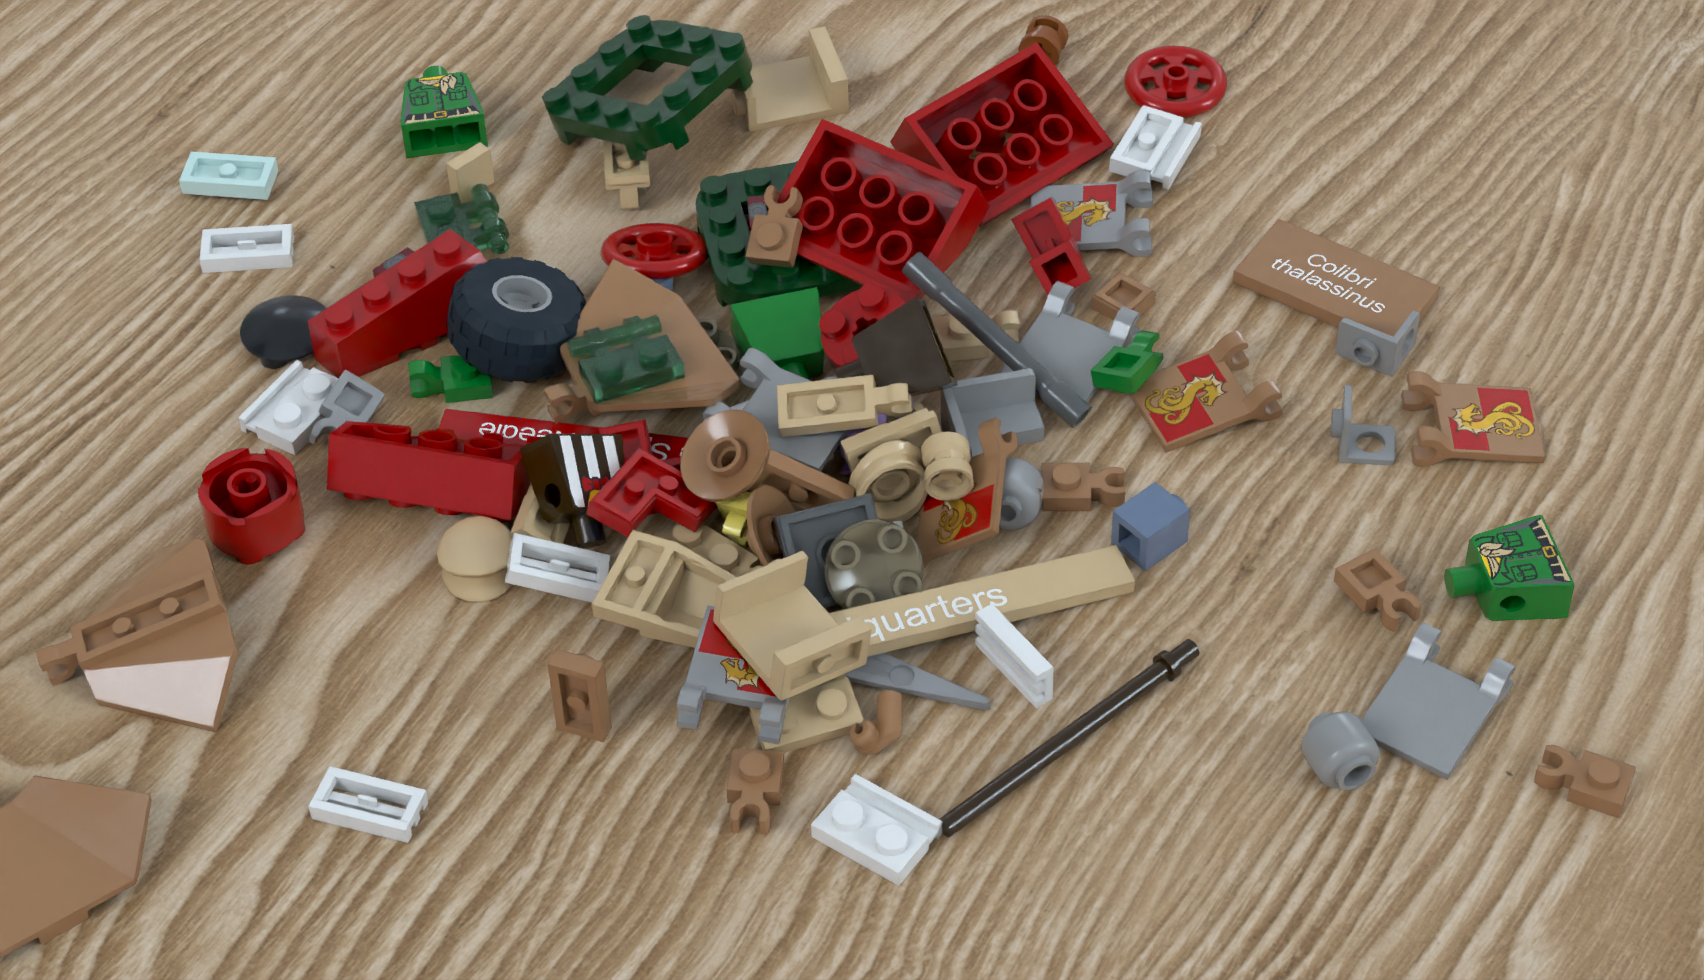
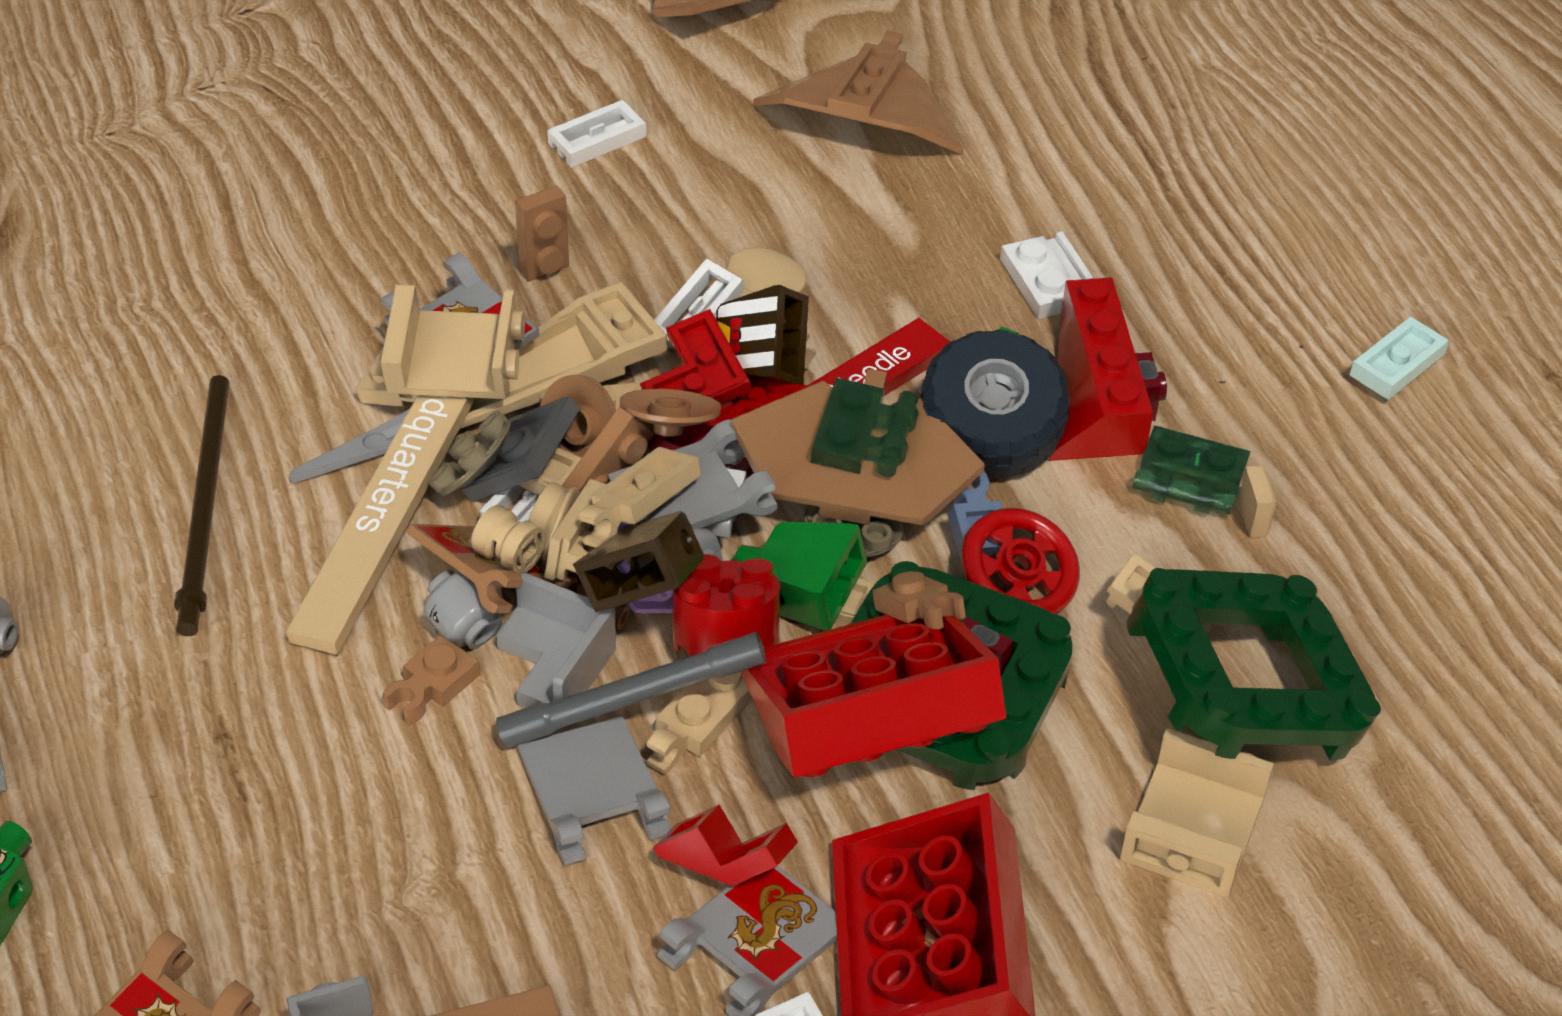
camera: 125 degrees right, 0 degrees up
(247, 248) = (1276, 356): white tile -> none
(251, 504) = (940, 181): red brick -> none
(280, 330) = (1158, 308): black dish -> none
(347, 401) = (1006, 287): light grey plate -> none
(428, 469) = (872, 289): red wedge -> none
(441, 114) = (1372, 528): green torso -> none
(753, 785) = (366, 308): medium nougat plate -> none
(876, 829) = (264, 348): white plate -> none
(884, 730) = (340, 400): medium nougat arm -> none
(1014, 656) = (302, 501): white tile -> none
(1122, 292) = (616, 879): medium nougat tile -> none
(1128, 367) = (513, 789): green plate -> none
(1150, 526) = (323, 676): sand blue brick -> none
(1204, 395) = (430, 835): medium nougat flag -> none
(1351, 433) = (257, 908): light grey bracket -> none
(1377, 584) = (83, 788): medium nougat plate -> none

